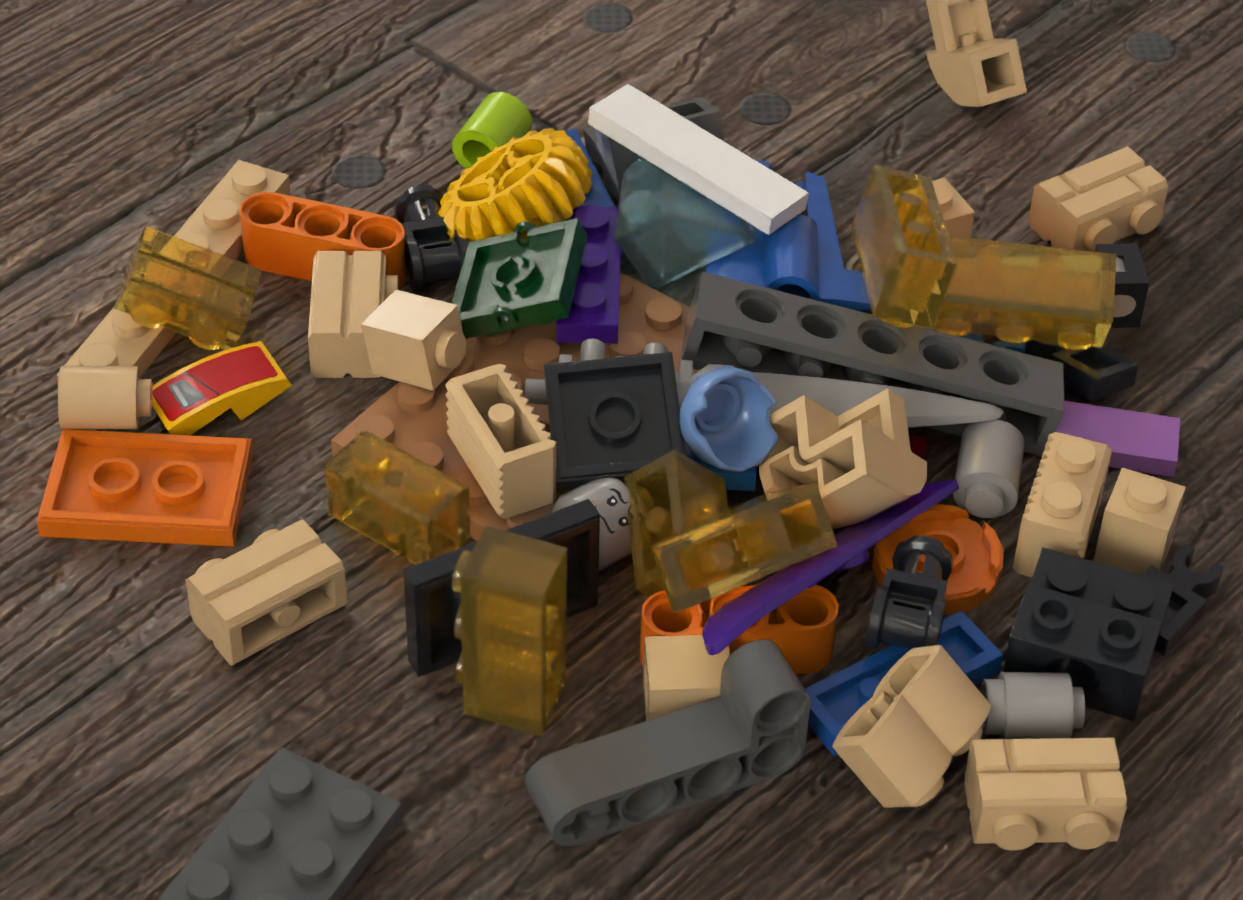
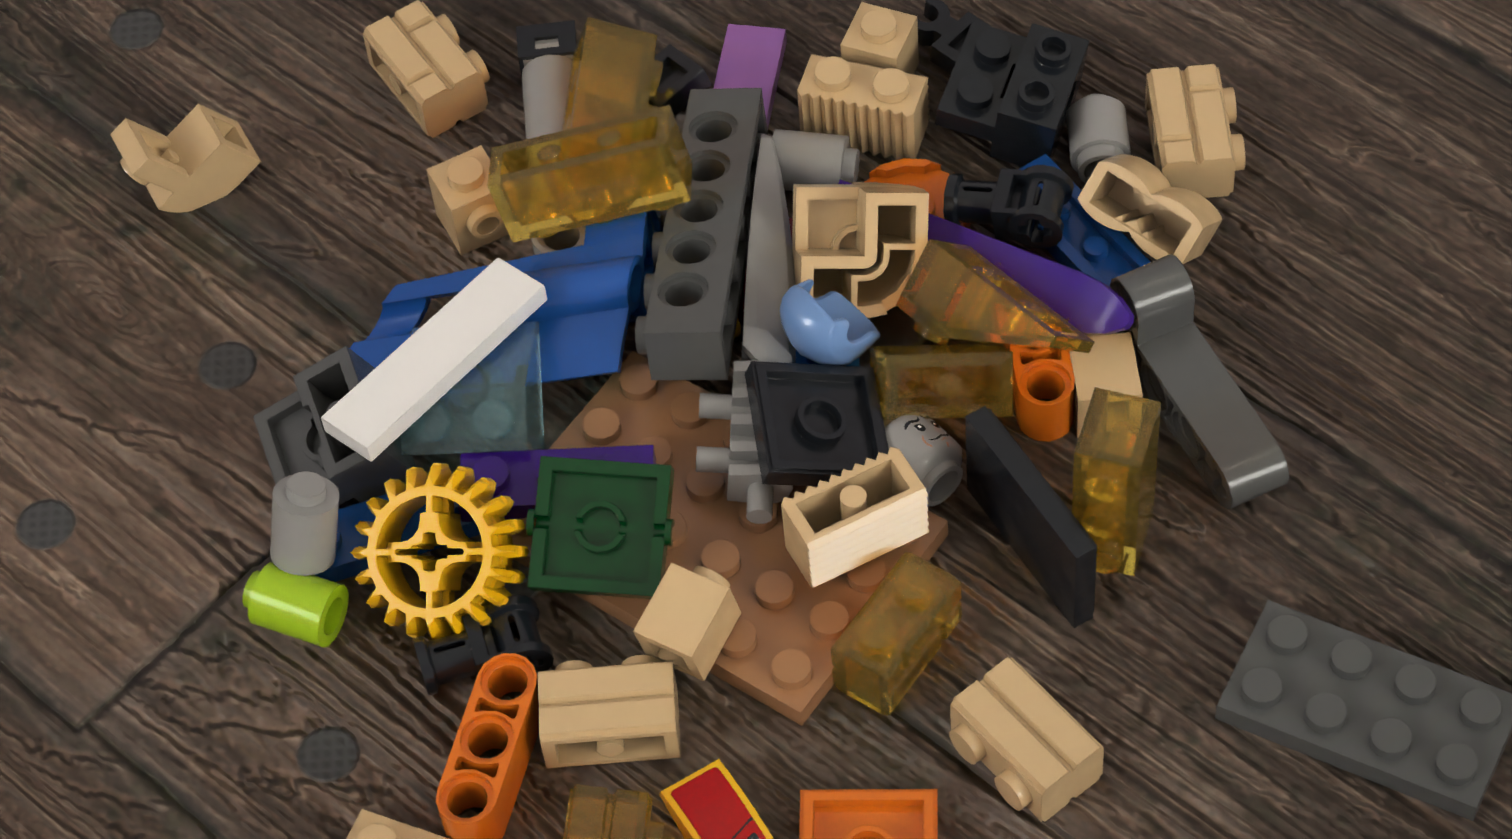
camera: 85 degrees left, 10 degrees up
(543, 98) = (304, 524): none -> light grey brick

